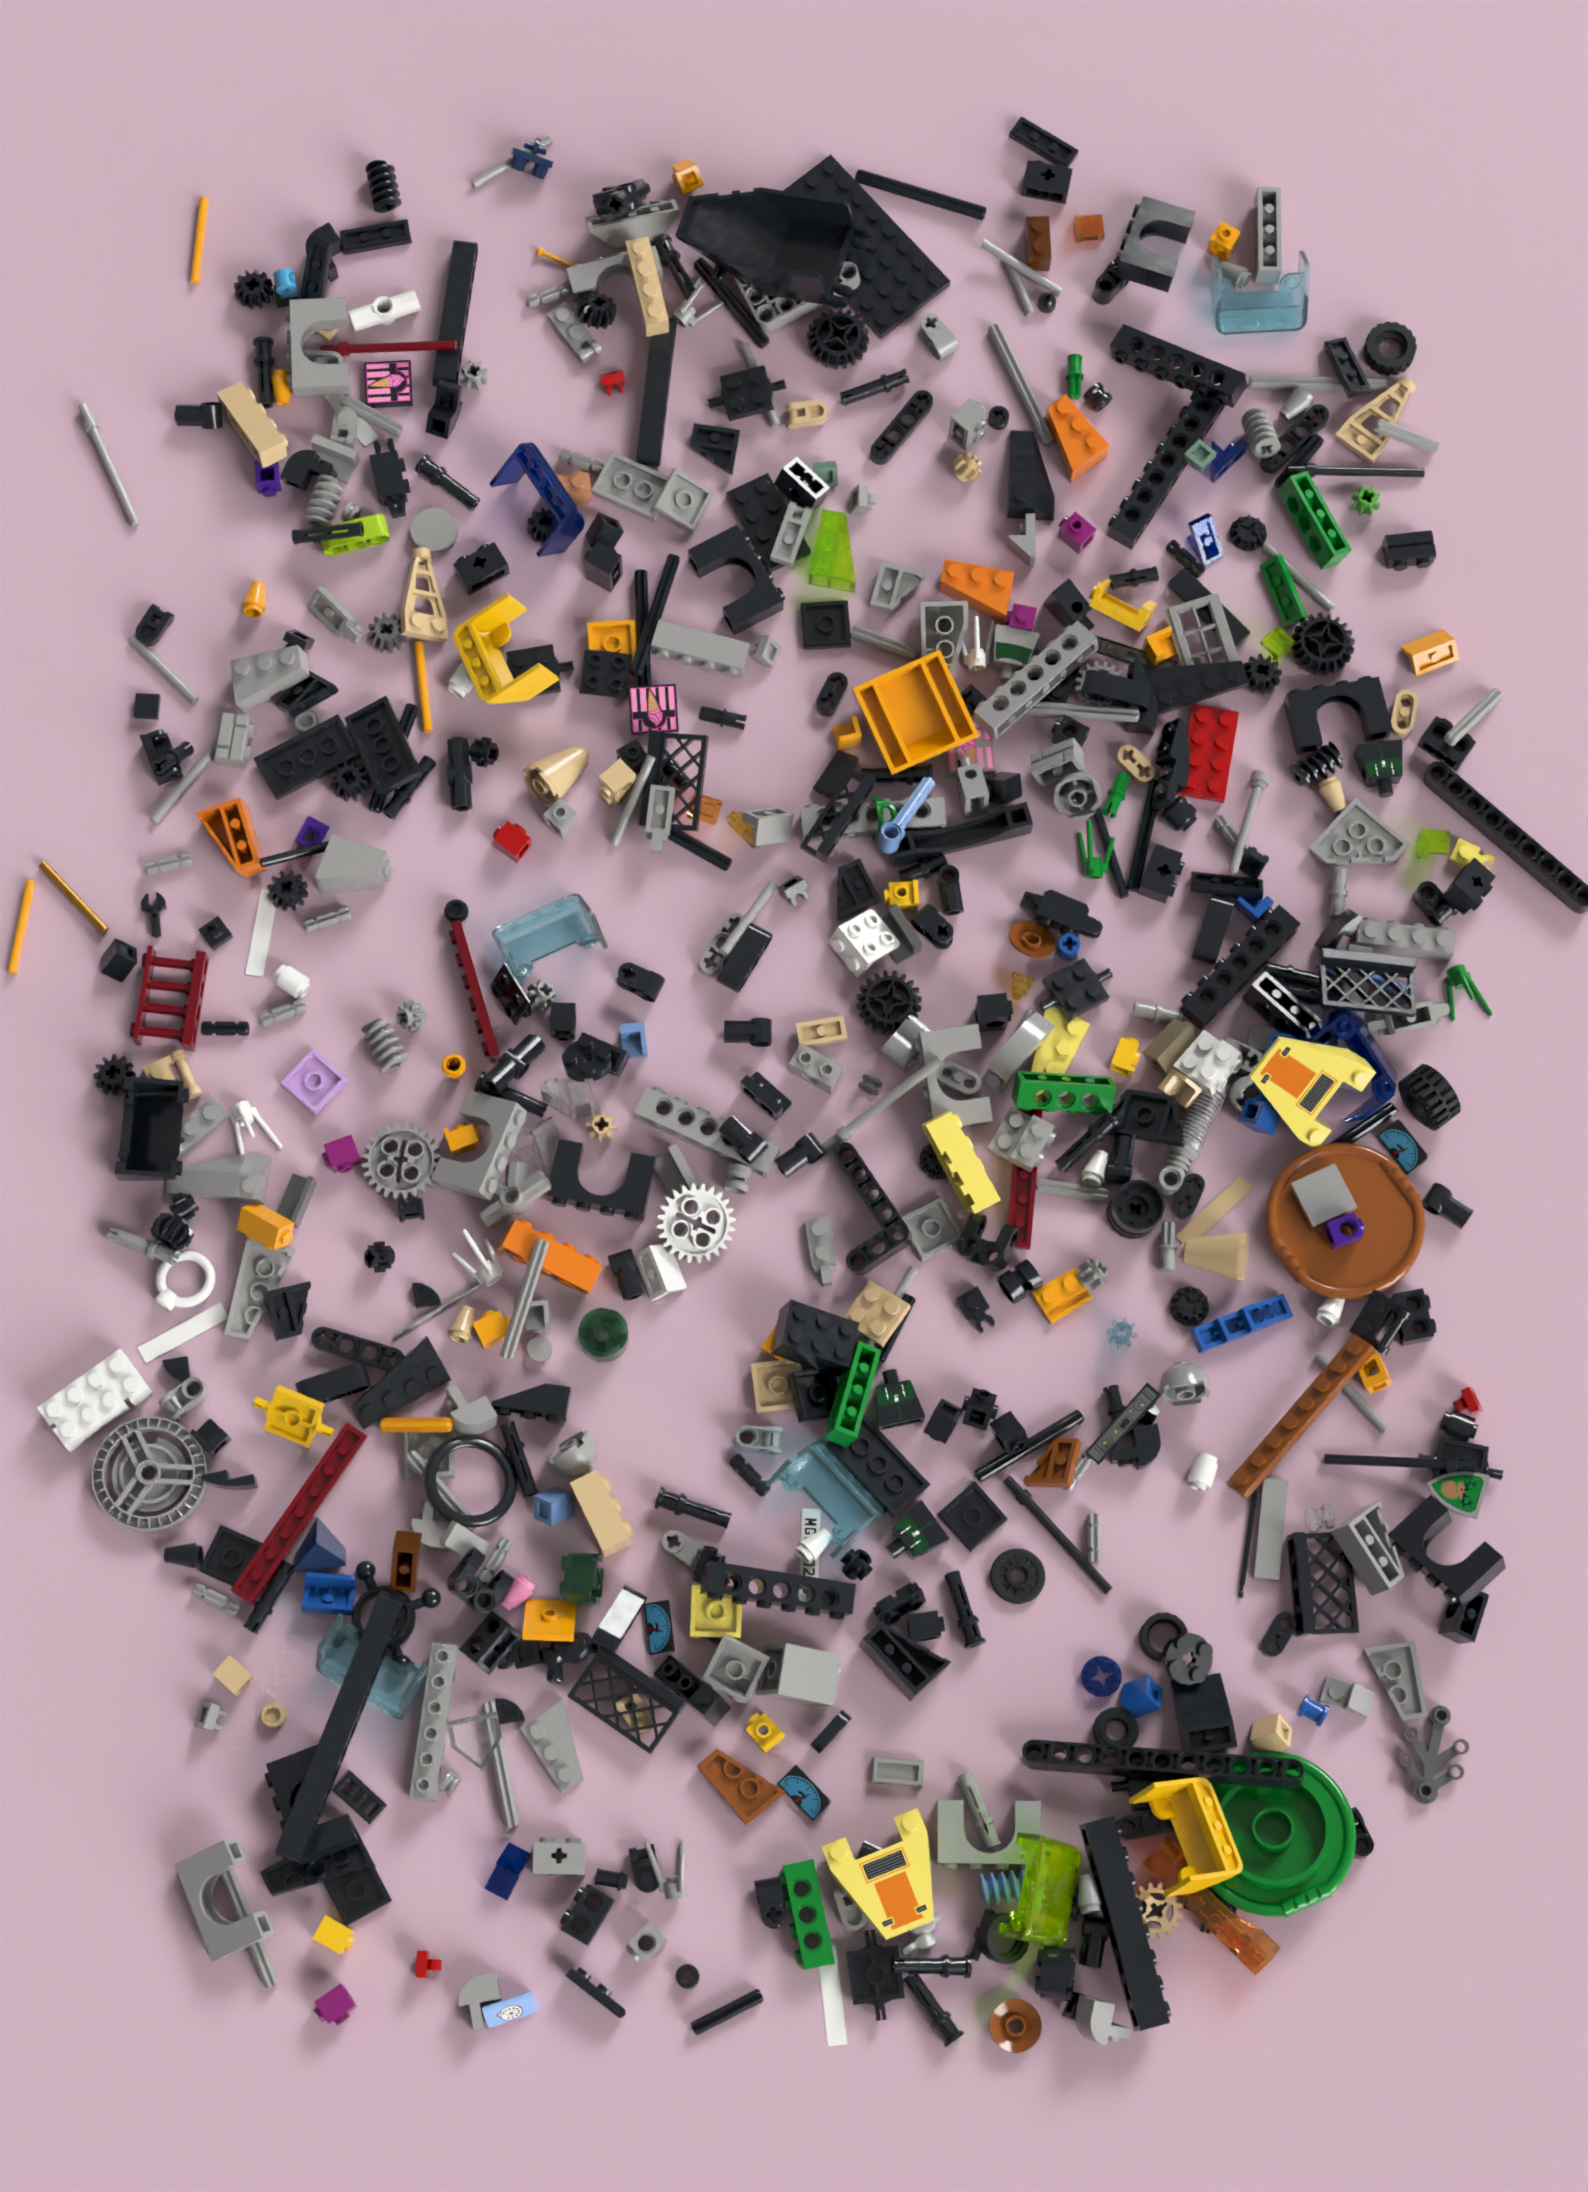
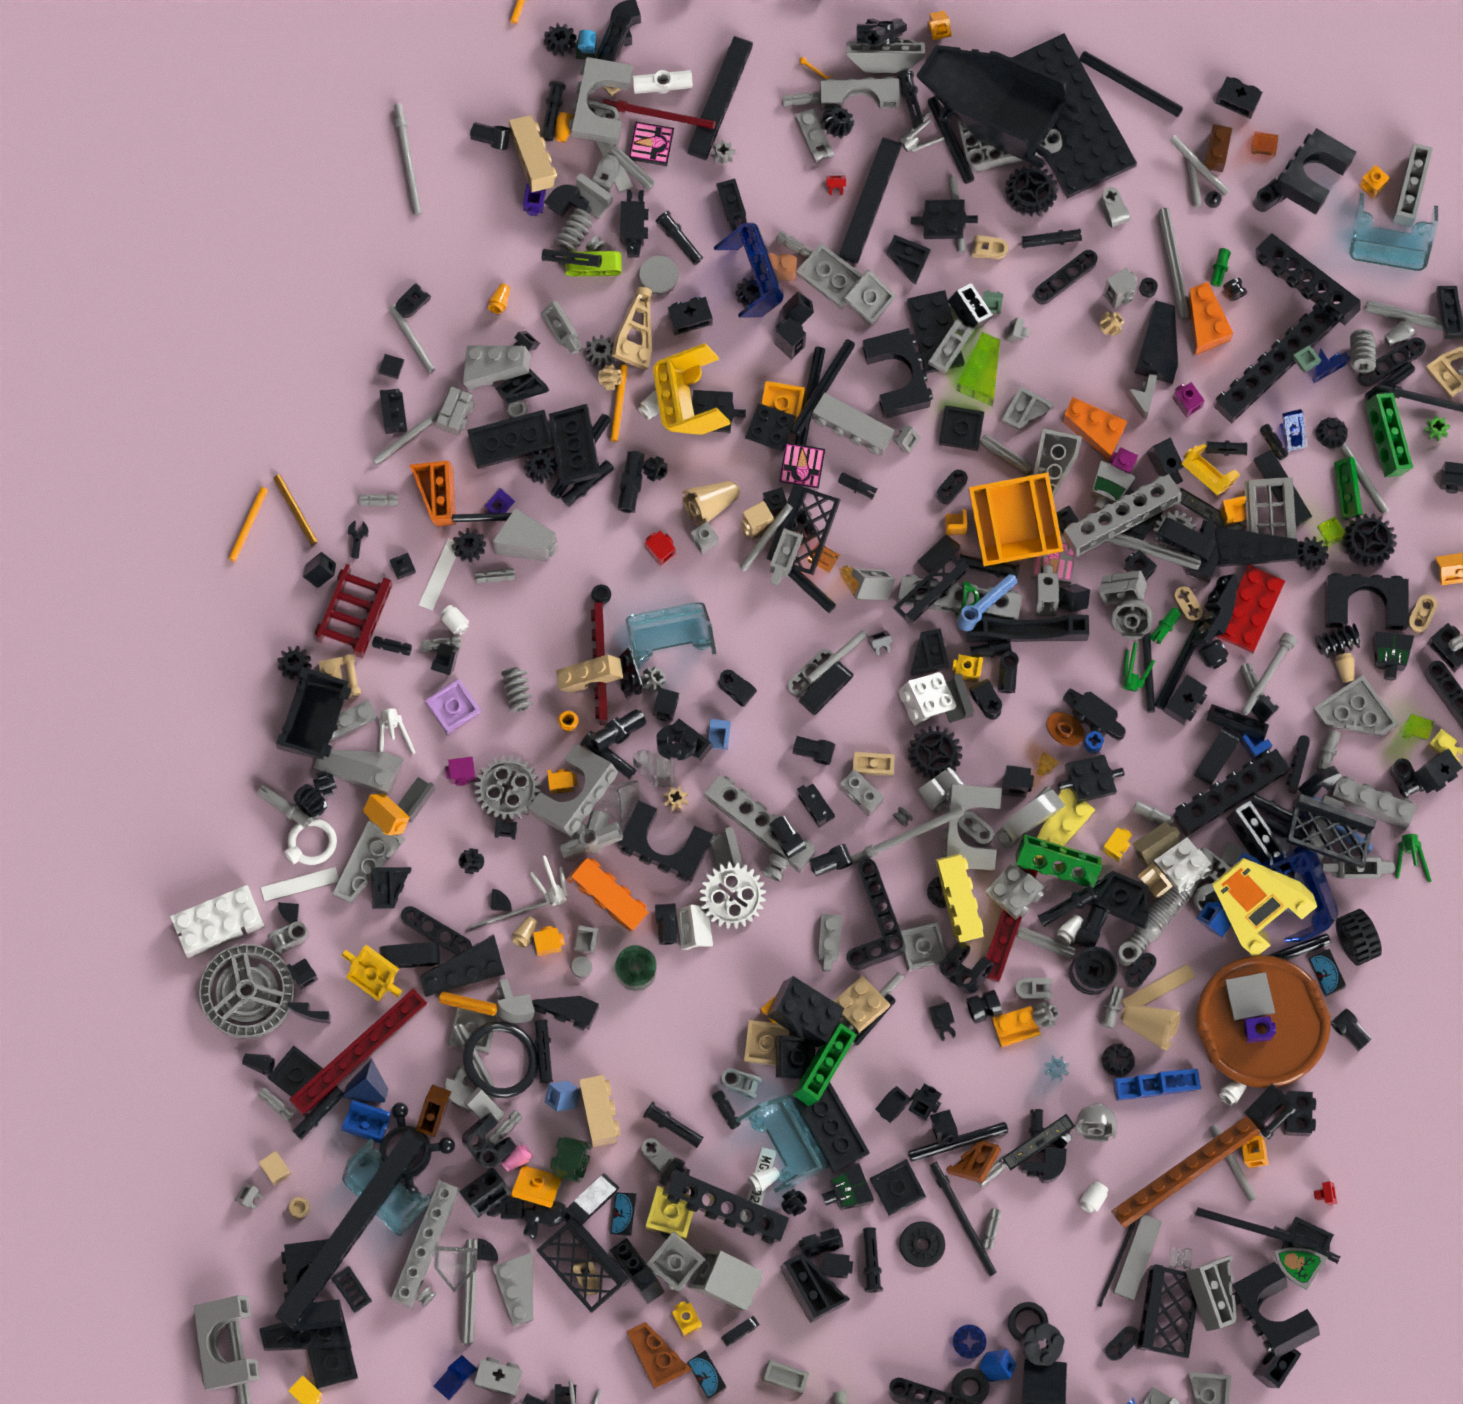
camera: 15 degrees right, 0 degrees up
(172, 757) = (402, 414): black pin -> none
(292, 1028) = (445, 659): none -> black panel
(375, 237) = (670, 17): black tile -> none
(405, 659) = (610, 377): none -> tan gear
(411, 1015) = (544, 671): light grey gear -> none
(446, 409) = (692, 177): black brick -> none
(476, 997) = (577, 676): none -> tan arch
(497, 428) = (731, 202): none -> black hinge
(524, 1298) = (579, 923): light grey axle -> none
(575, 1455) = (589, 1059): light grey cylinder -> none
(647, 286) = (883, 112): tan brick -> none
(896, 1402) = (859, 1080): black torso -> none
(977, 658) = (1079, 485): white plant -> none
(1043, 143) = (1245, 63): black tile -> none
(1063, 1247) = (1026, 989): none -> light grey plate
(1239, 275) = (1380, 213): light grey cone -> none
(1307, 914) = (1298, 763): none -> black hinge
(1458, 1425) = (1313, 1211): black brick -> none

